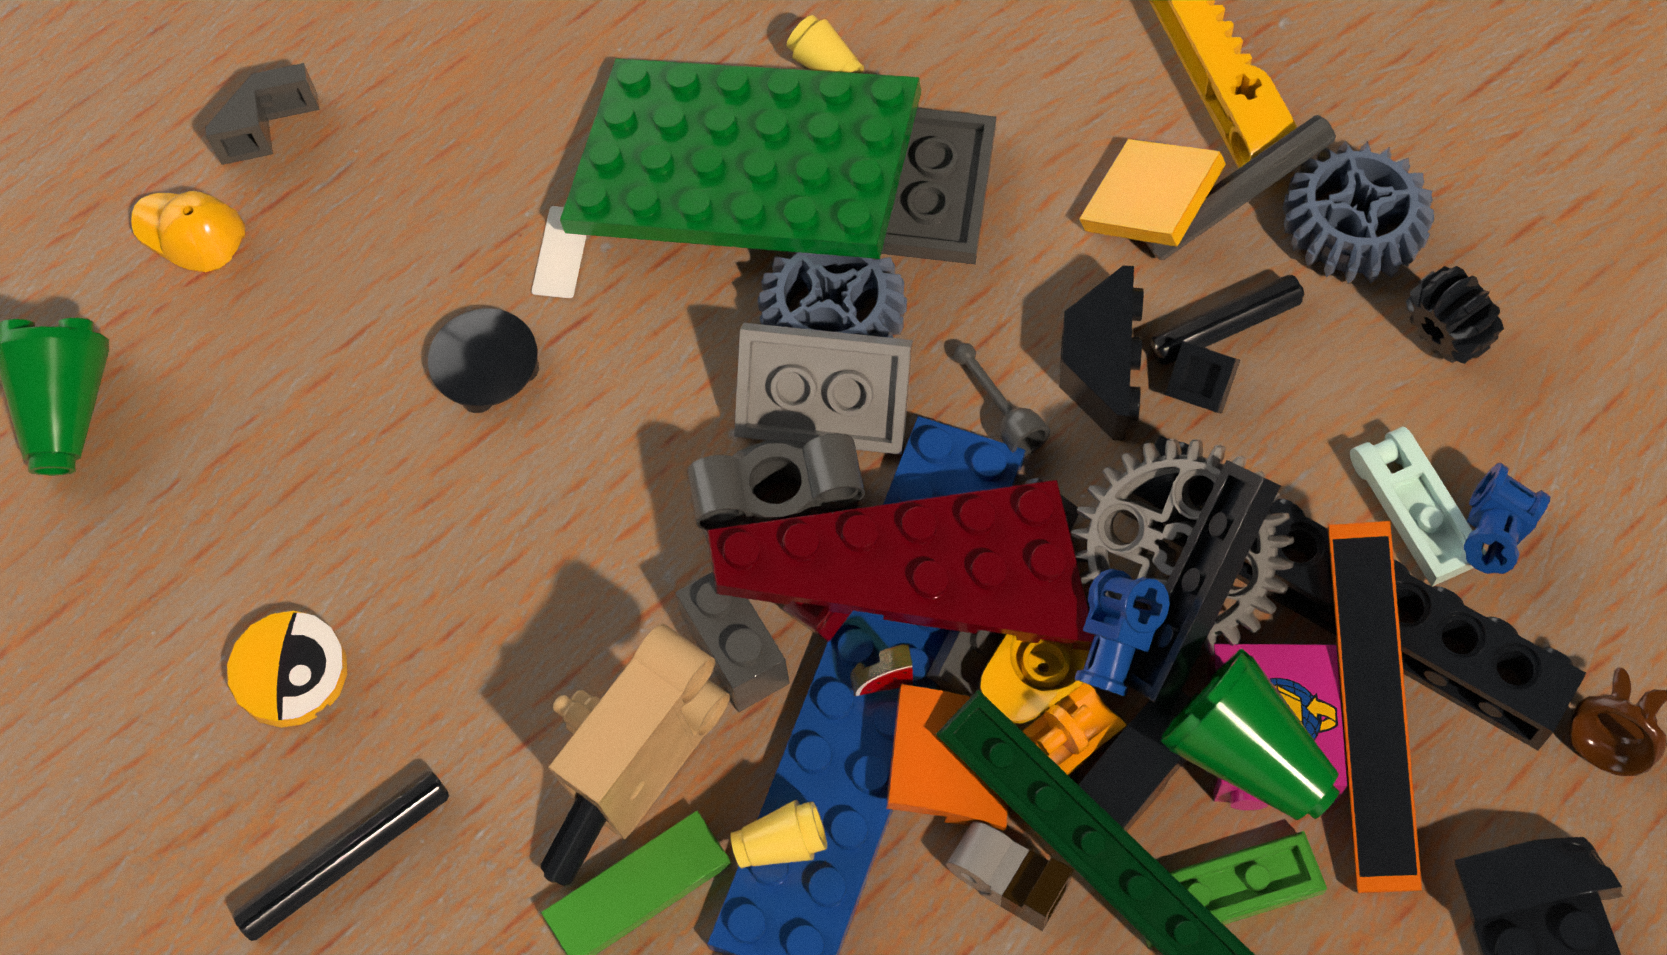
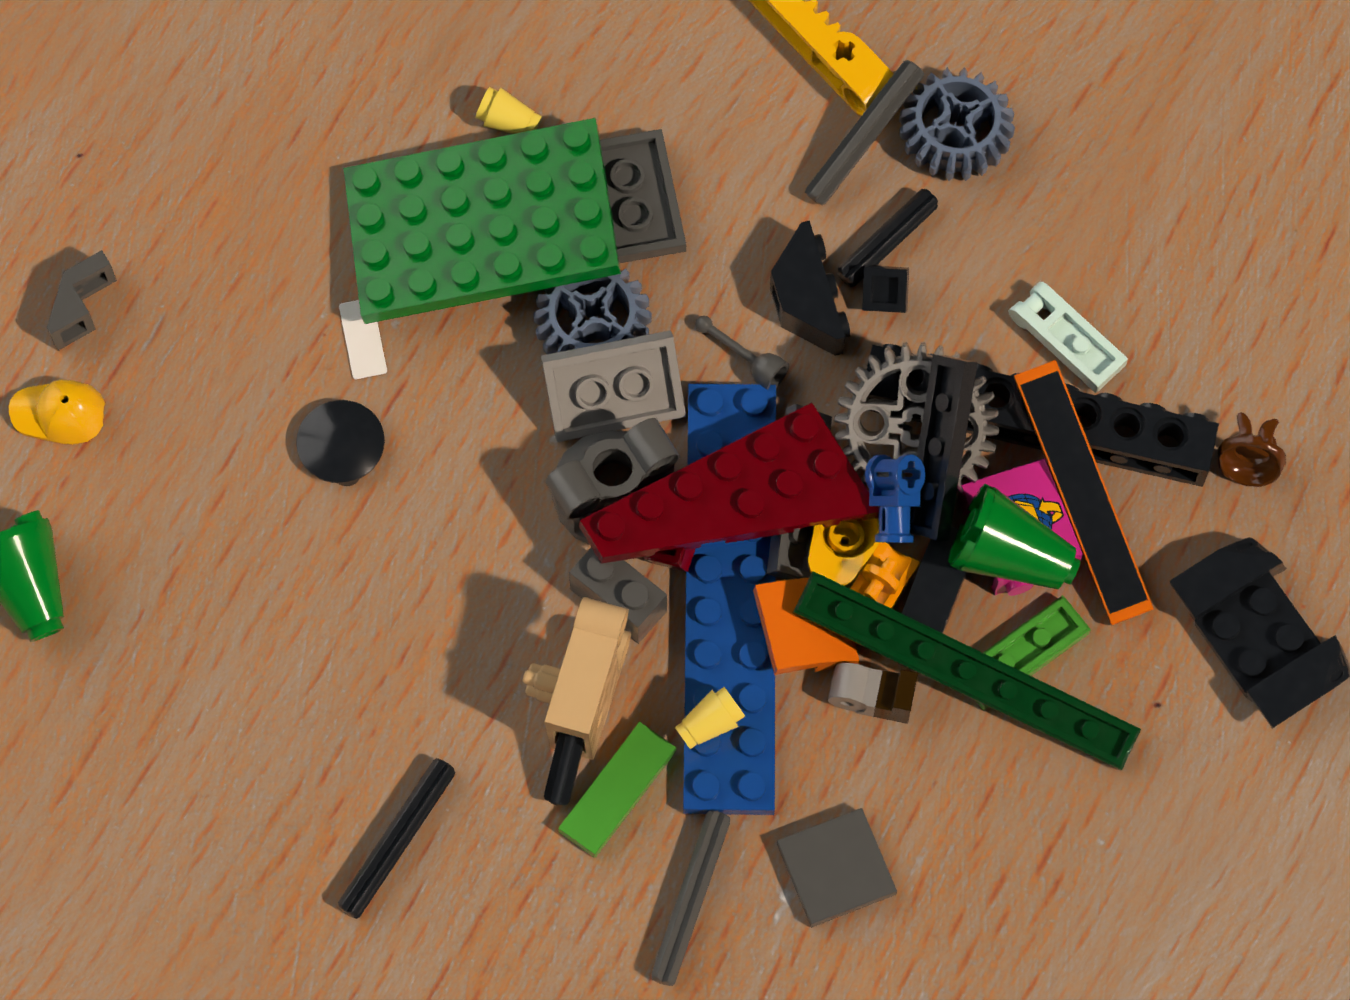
camera: 25 degrees left, 5 degrees up
(287, 668) = (295, 721): tile -> none
(891, 672) = (746, 577): tile -> none
(1152, 192) = (800, 155): yellow tile -> none
(1454, 314) = (1051, 186): black gear -> none
(1503, 517) = (1130, 327): blue connector -> none

